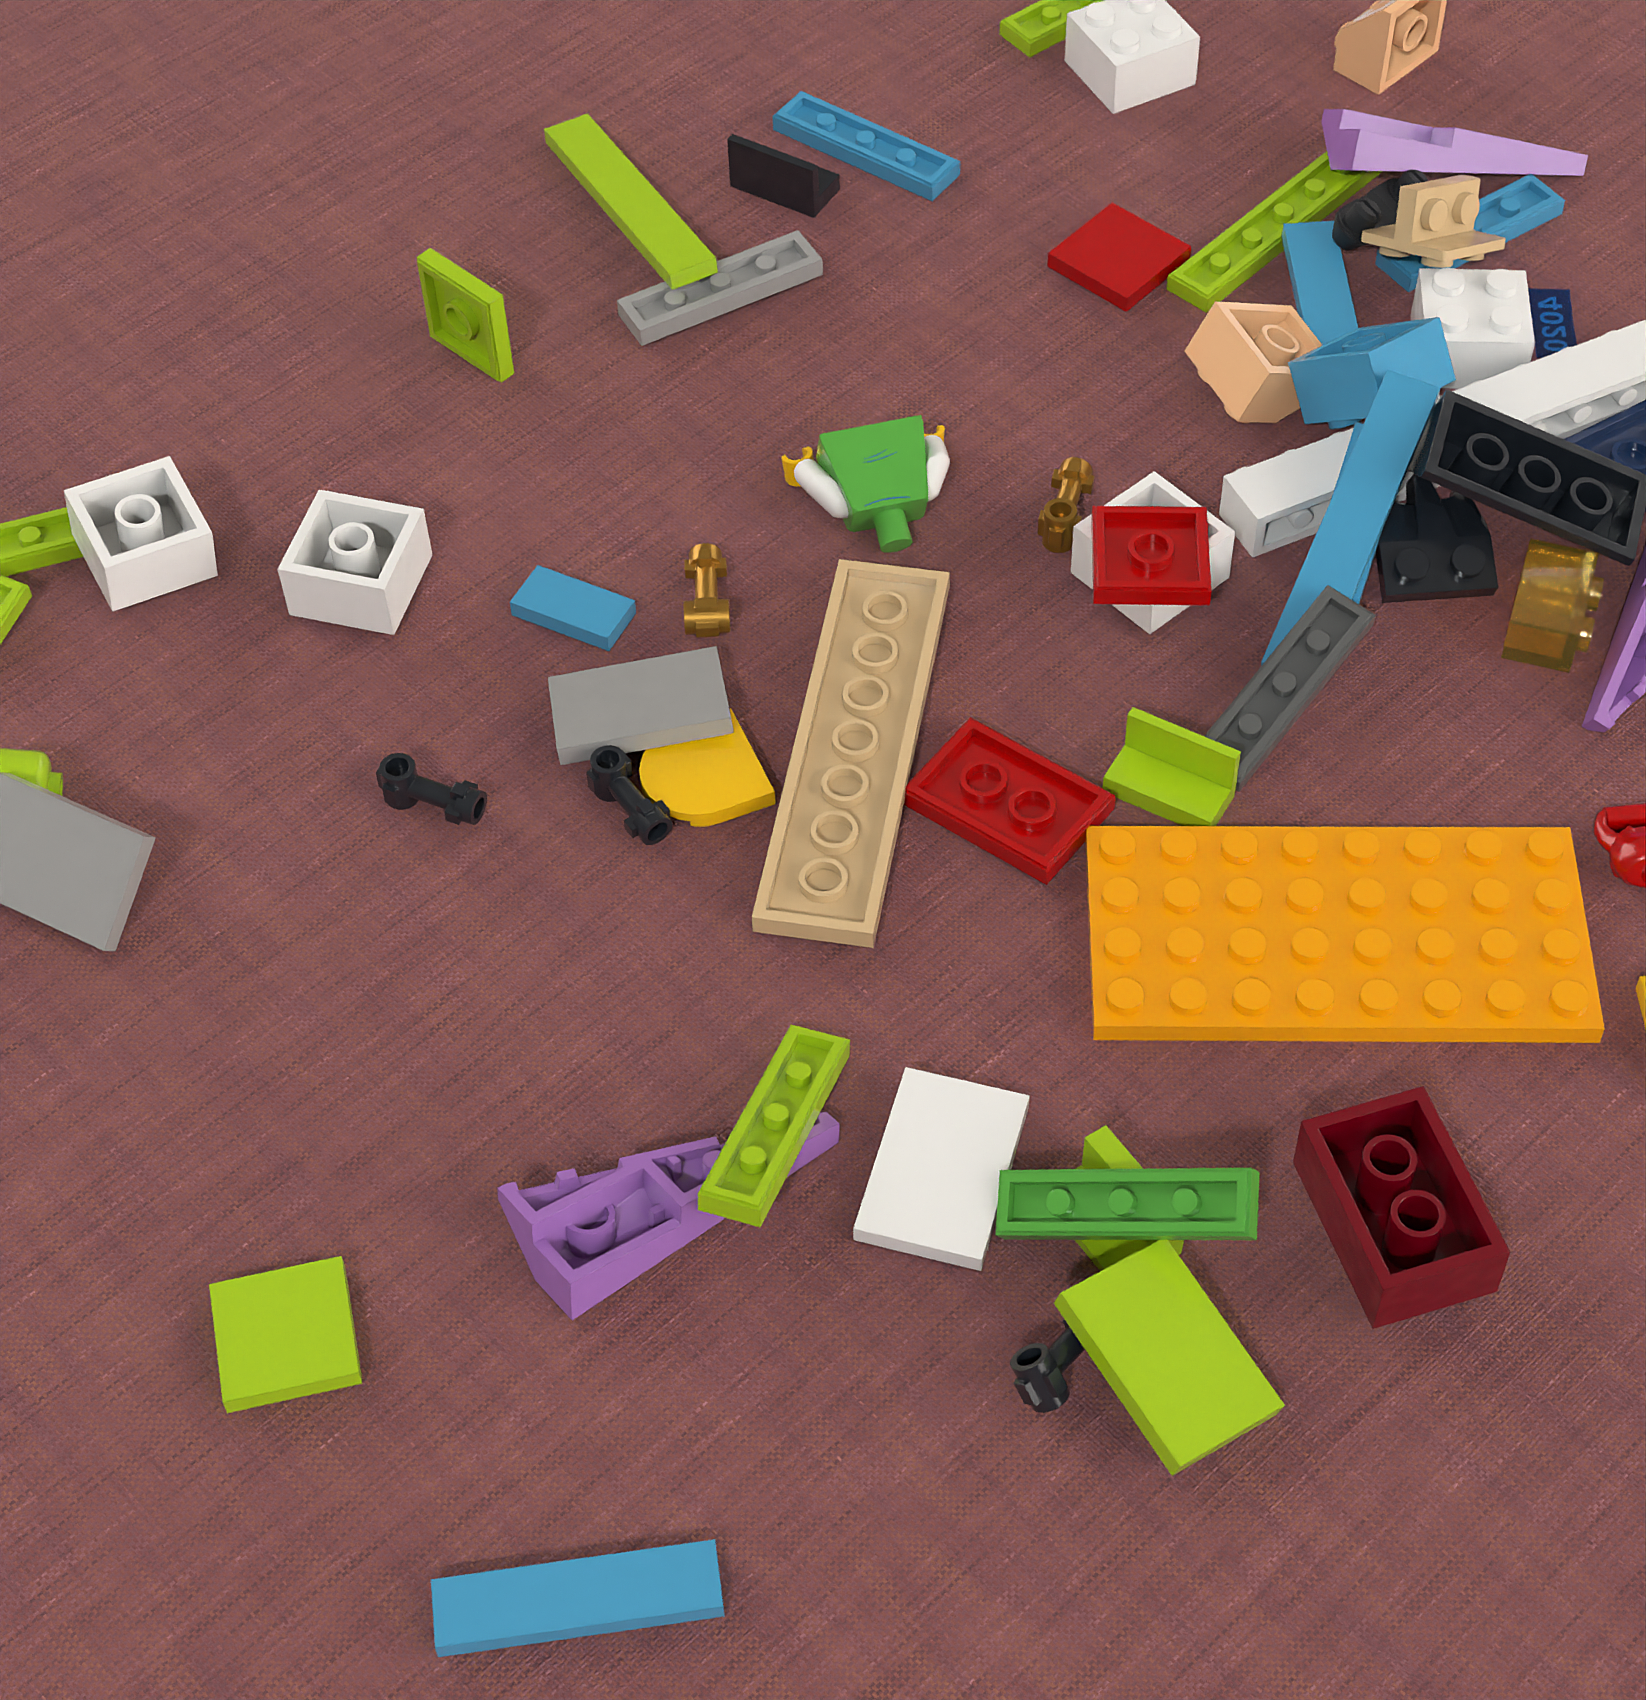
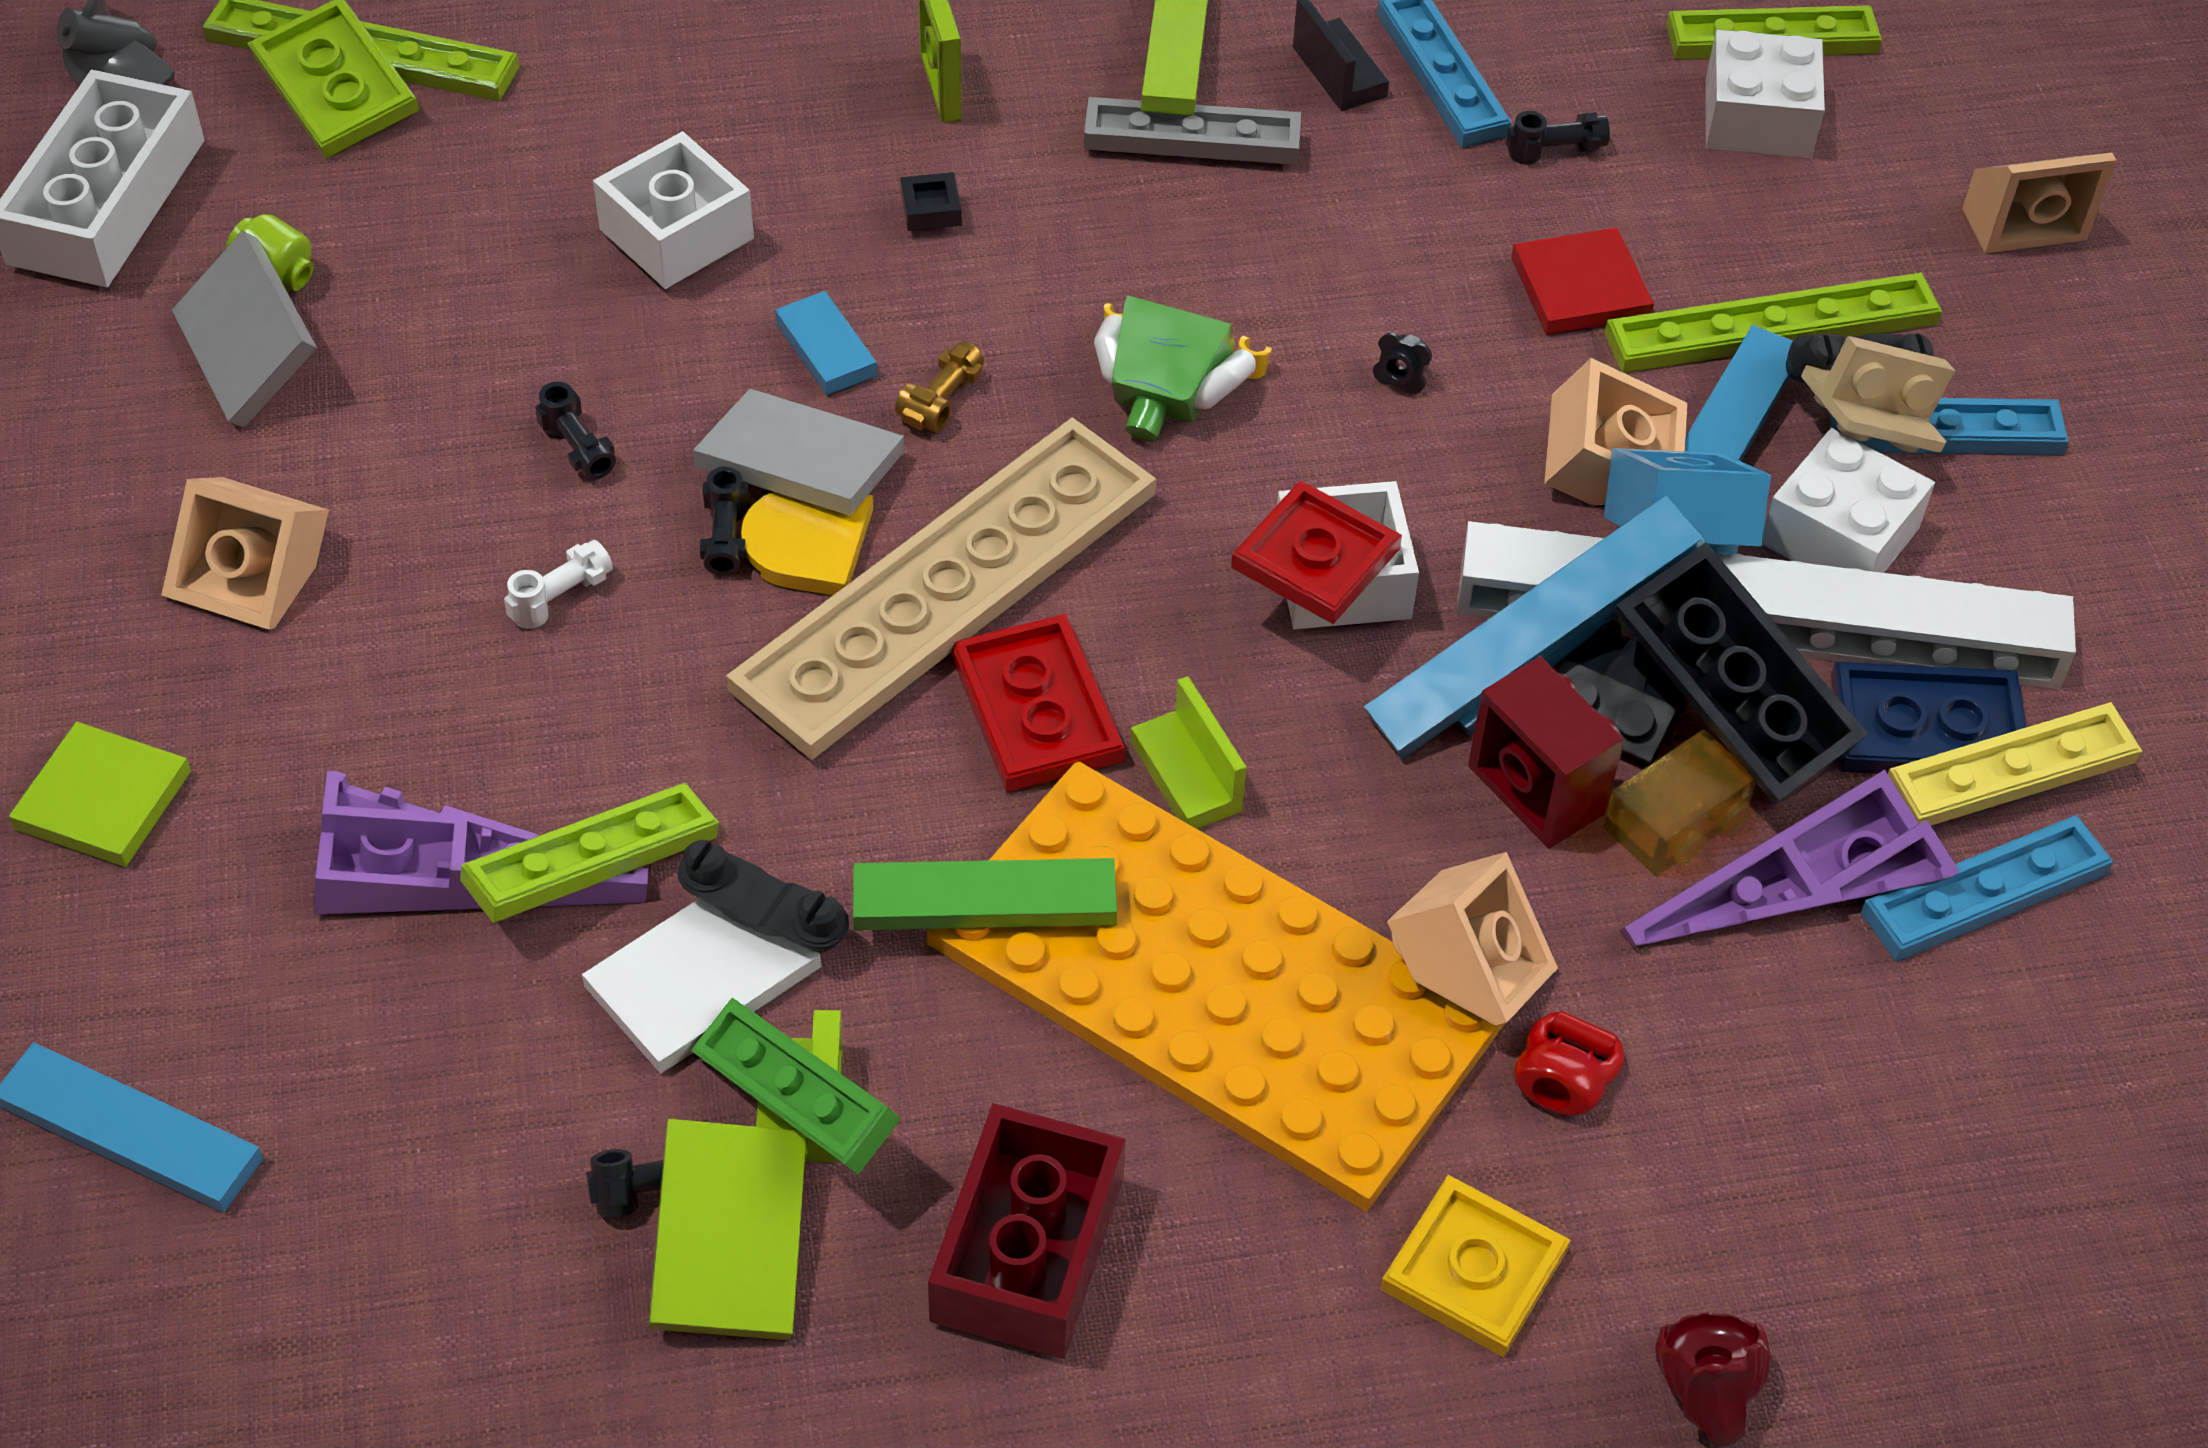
camera: 30 degrees right, 0 degrees up
(141, 533) = (527, 98): white brick -> none
(228, 1052) = (242, 550): none -> light nougat slope
(518, 941) = (530, 591): none -> white bar
(559, 448) = (931, 201): none -> black plate
(956, 1078) = (760, 900): none -> black piece
(987, 158) = (1533, 133): none -> black bar
(1047, 371) = (1410, 351): none -> black plate
(1060, 514) = (1343, 460): pearl gold bar -> none
(1124, 968) = (984, 894): none -> bright green tile
(1291, 679) = (1358, 737): dark grey tile -> none
(1387, 144) = (1932, 304): wedge -> none
(1437, 618) = (1545, 751): none -> dark red brick
(1509, 786) = (1475, 939): none -> light nougat slope
(1551, 320) = (1953, 548): clear blue sticker -> none

